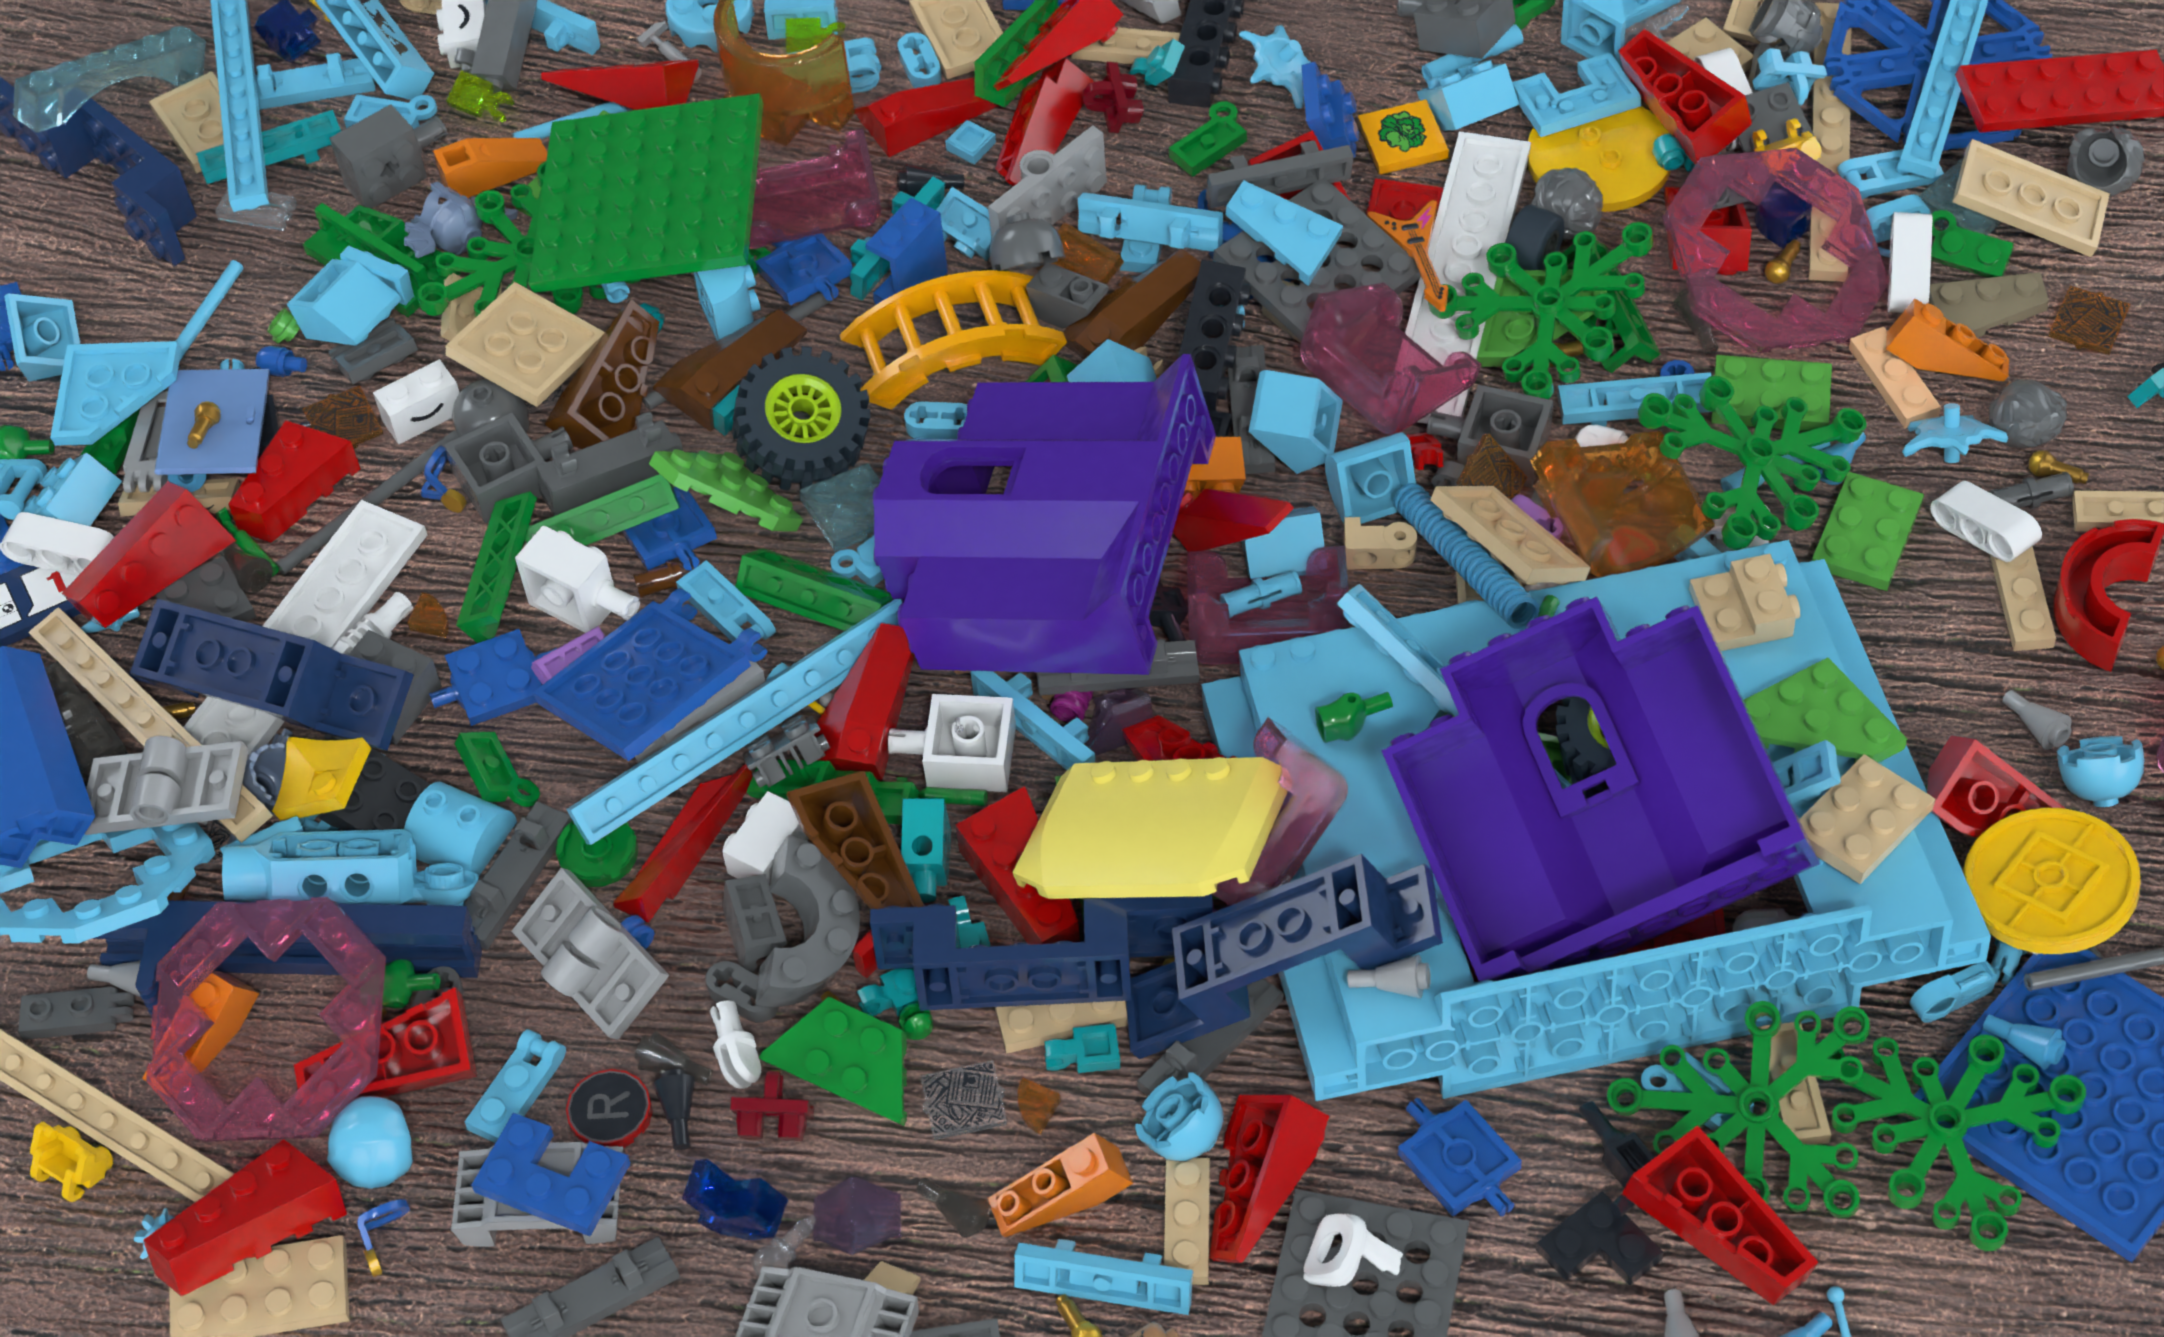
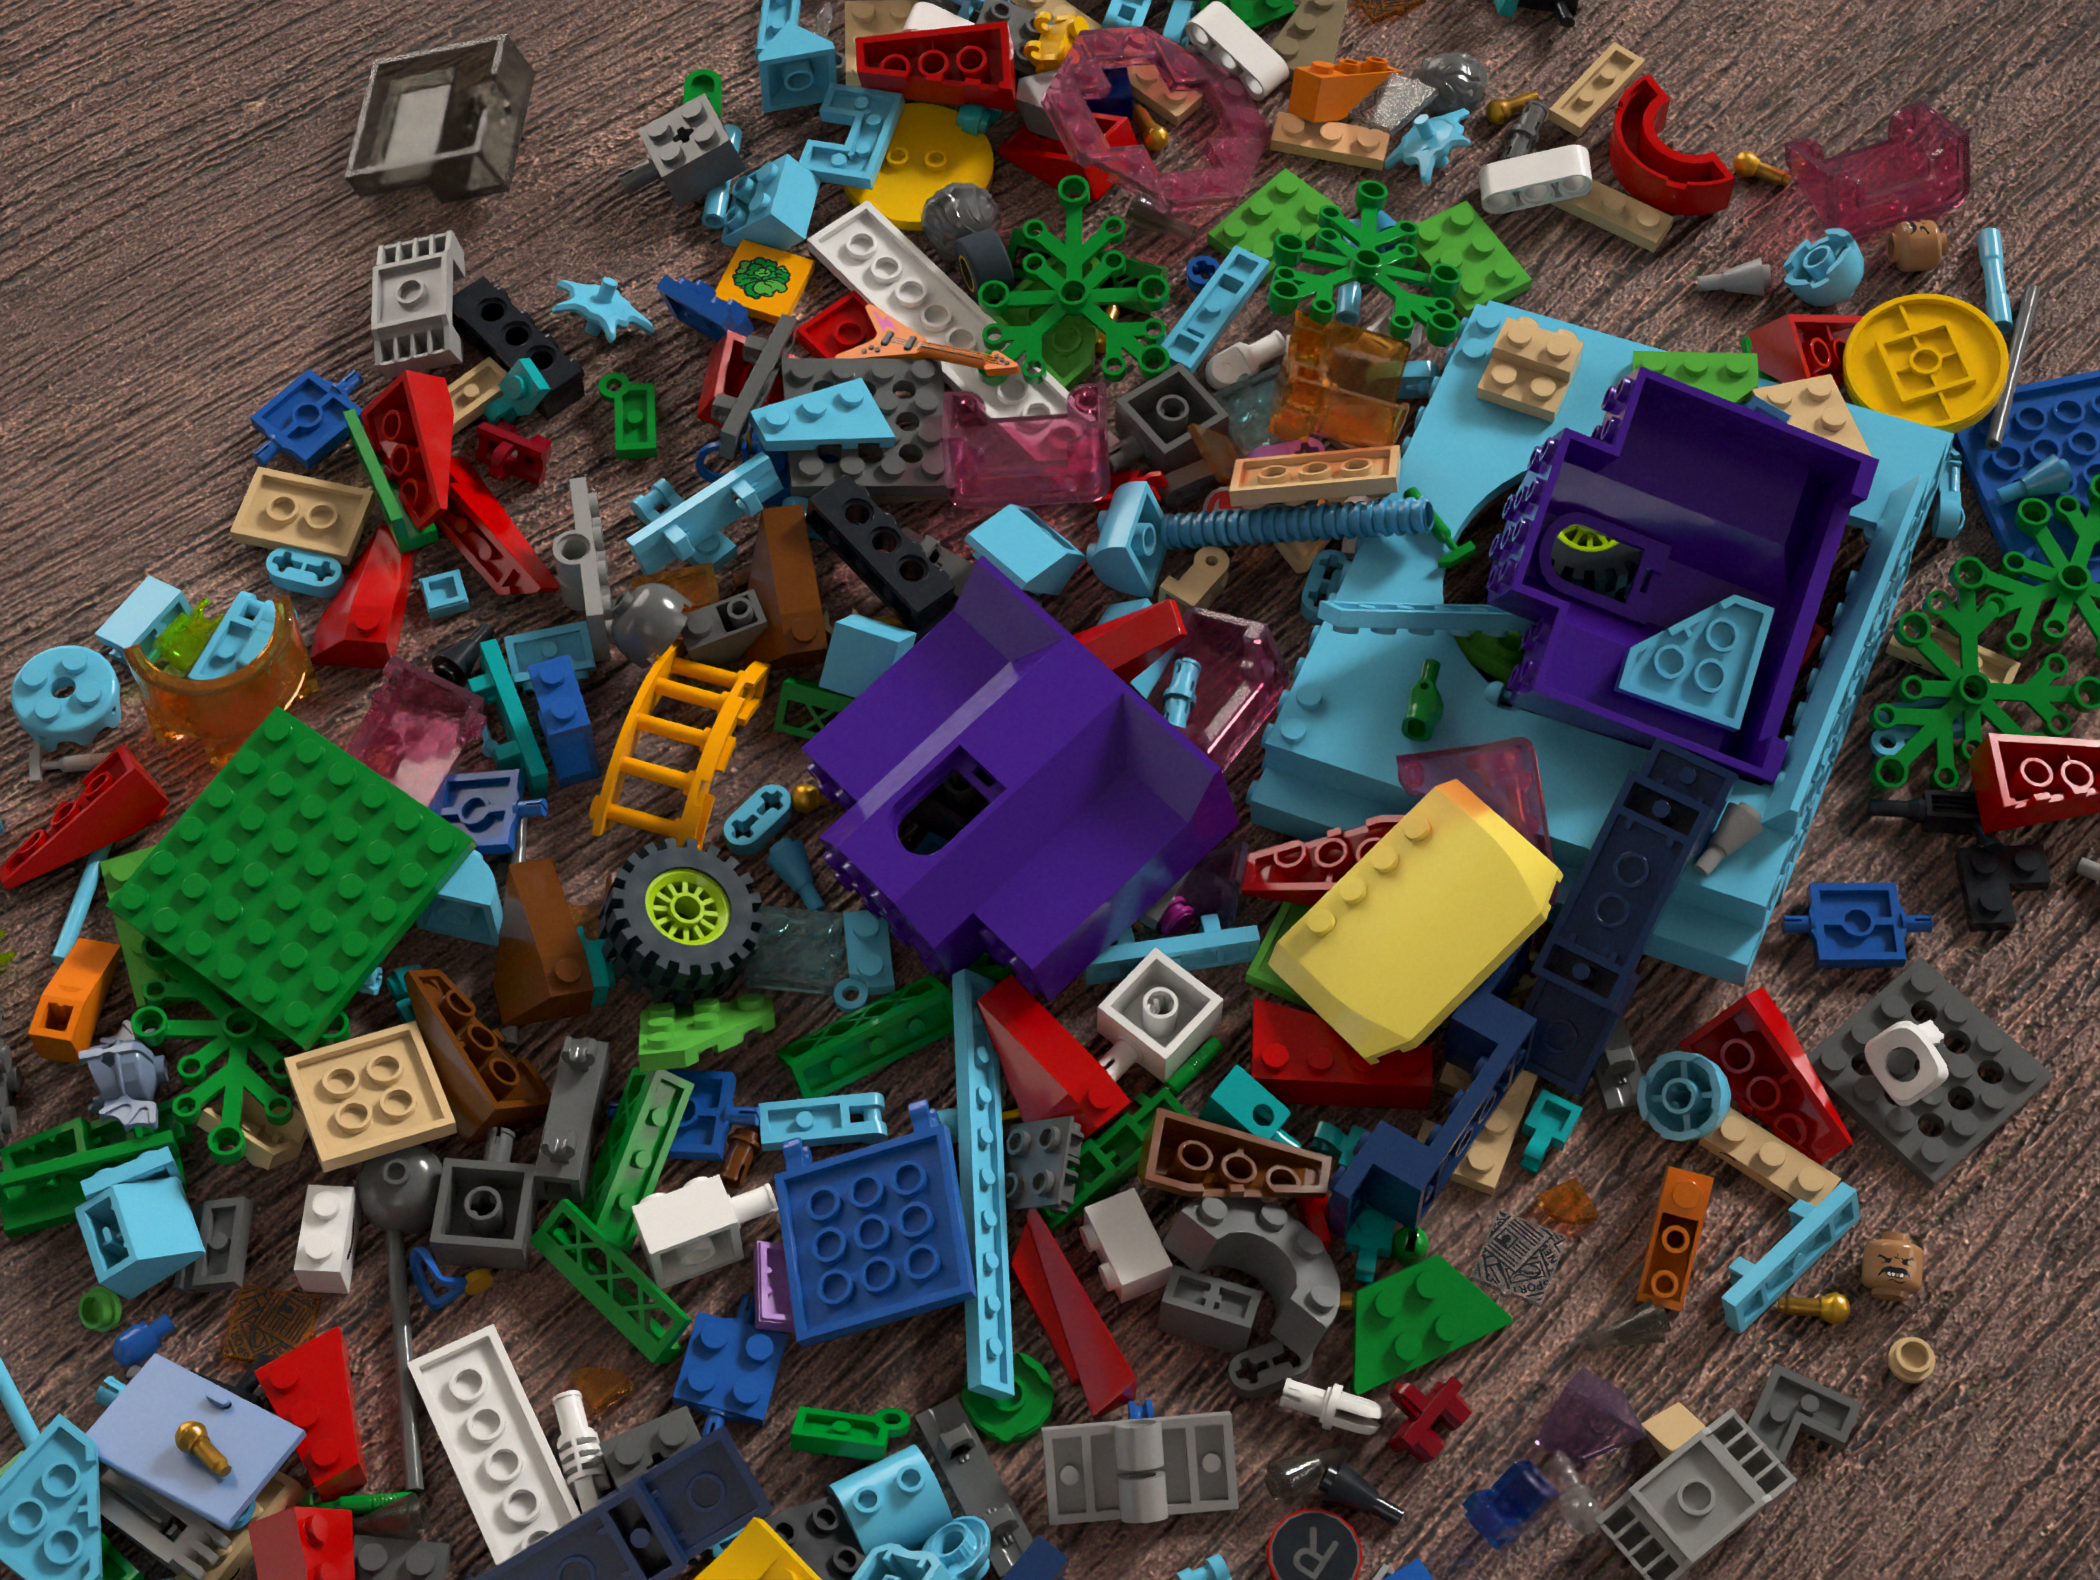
camera: 60 degrees left, 5 degrees up
(1550, 868) = (1701, 663): none -> medium azure plate
(1962, 386) = (1393, 103): none -> clear piece

